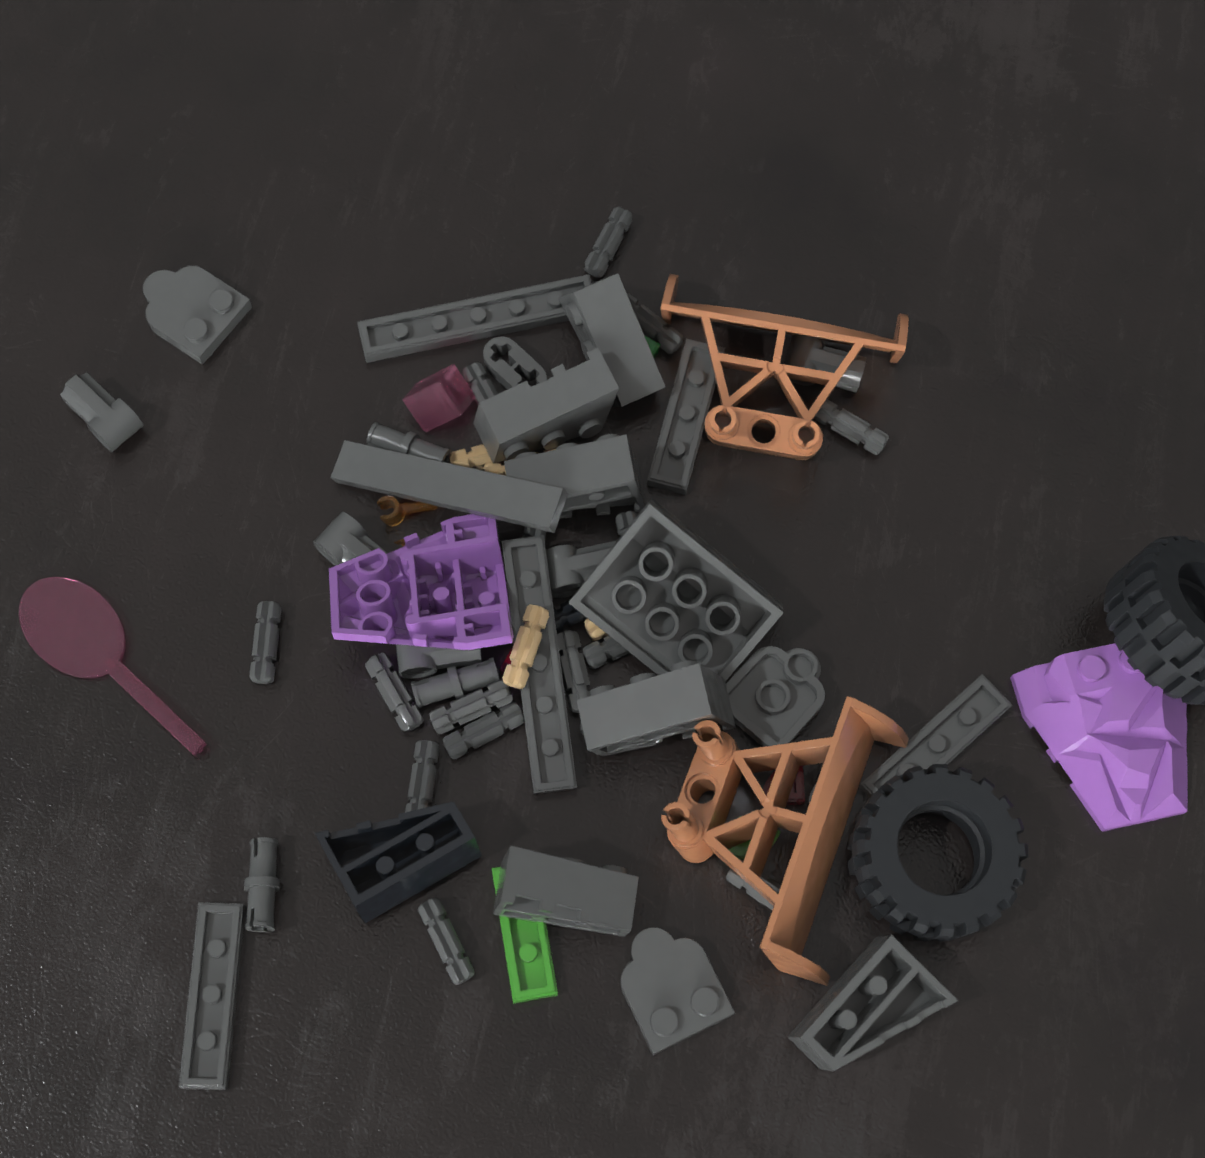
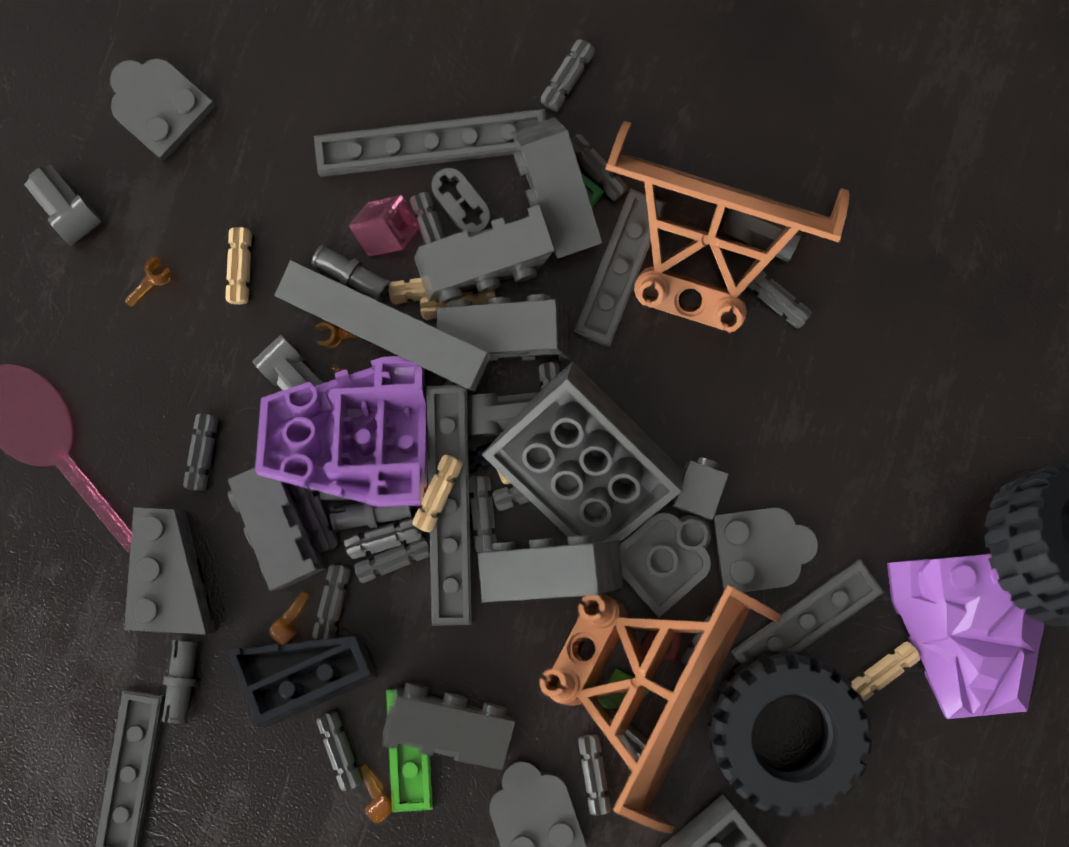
camera: 10 degrees right, 15 degrees up
(199, 476) = (149, 281): none -> clear orange hand
(236, 772) = (164, 576): none -> dark grey wedge
(290, 453) = (238, 265): none -> tan axle
(354, 706) = (275, 529): none -> dark grey wedge
(370, 810) = (281, 630): none -> clear orange hand
(498, 997) = (381, 805): none -> clear orange hand
(732, 933) = (594, 774): none -> dark grey axle
(802, 619) = (701, 488): none -> dark grey brick
(877, 671) = (761, 549): none -> dark grey plate
(1033, 782) = (886, 670): none -> tan axle

